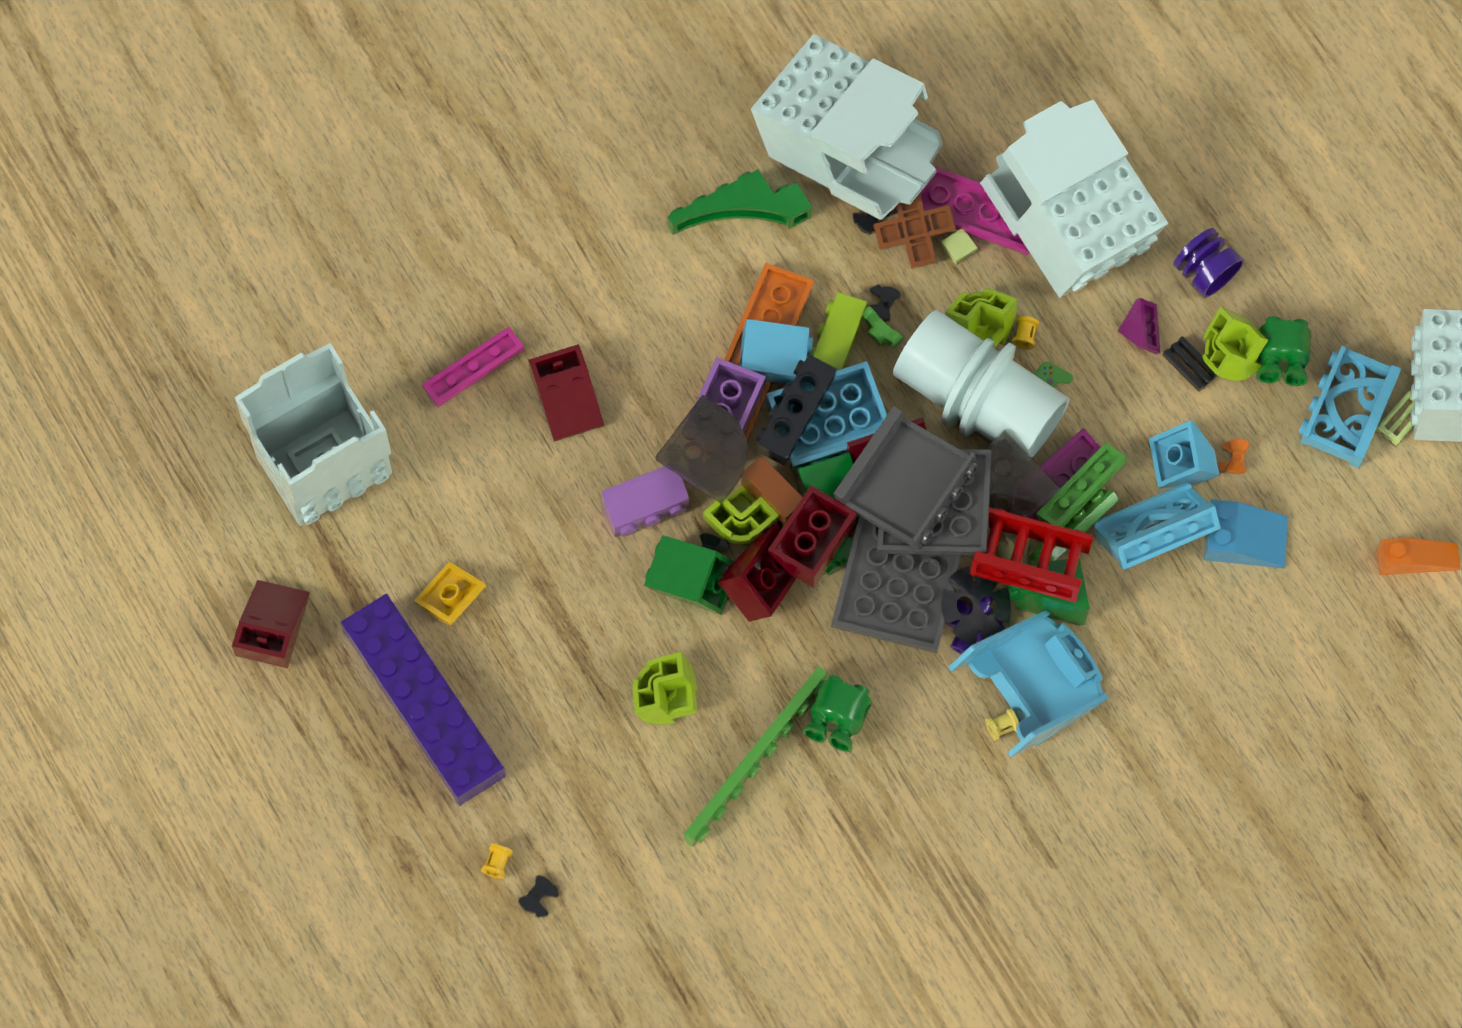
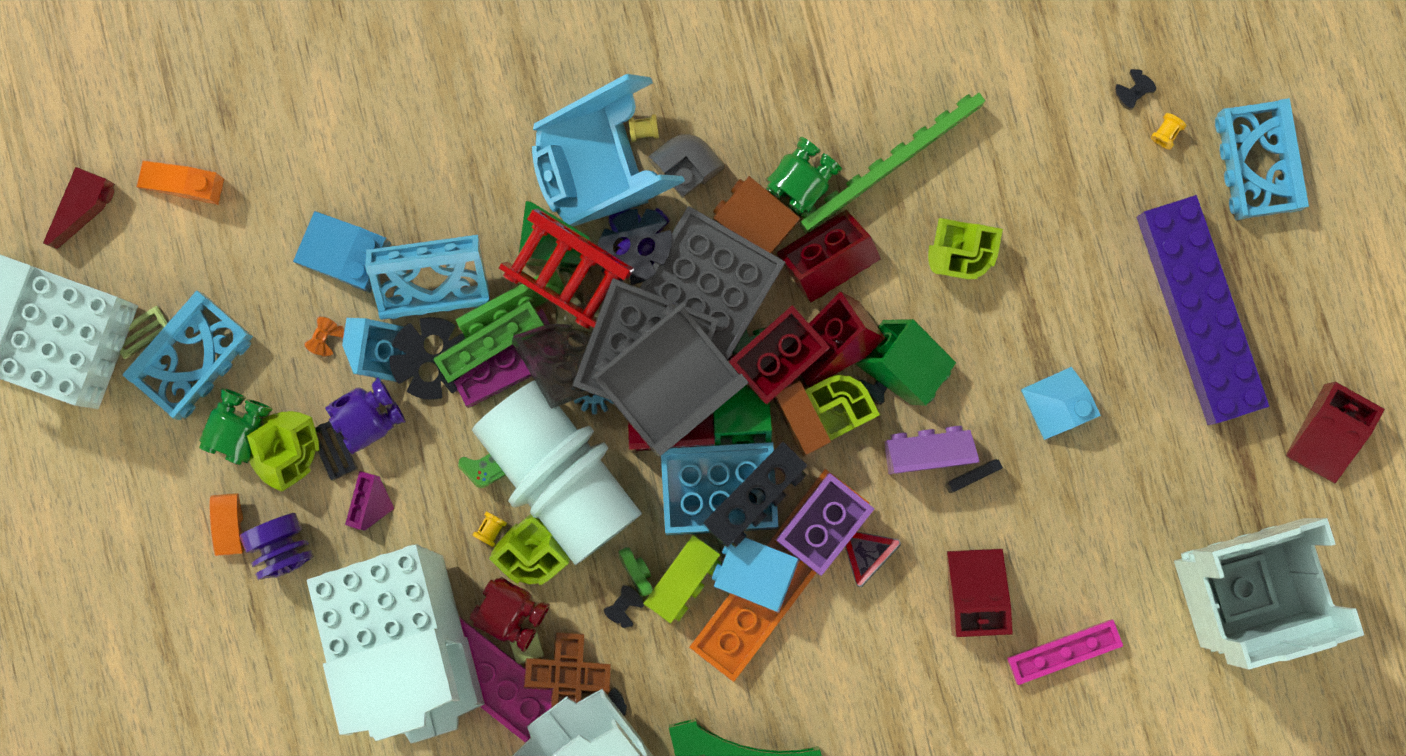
camera: 165 degrees left, 15 degrees up
(367, 838) = (1287, 147): none -> medium azure fence
(449, 594) = (1147, 413): yellow slope -> none
(534, 582) = (1060, 403): none -> medium azure slope
(594, 497) = (973, 475): none -> black tile
(675, 399) = (868, 554): none -> piece
(707, 449) = (859, 474): clear smoke plate -> none
(790, 653) = (829, 255): none -> dark red slope
(872, 665) = (756, 215): none -> dark orange brick
(952, 701) = (687, 157): none -> dark grey brick
(988, 263) = (505, 612): none -> dark red piece
(1150, 470) = (412, 344): none -> black piece
(1171, 392) = (360, 418): none -> dark purple piece
(1262, 274) = (225, 524): none -> orange slope

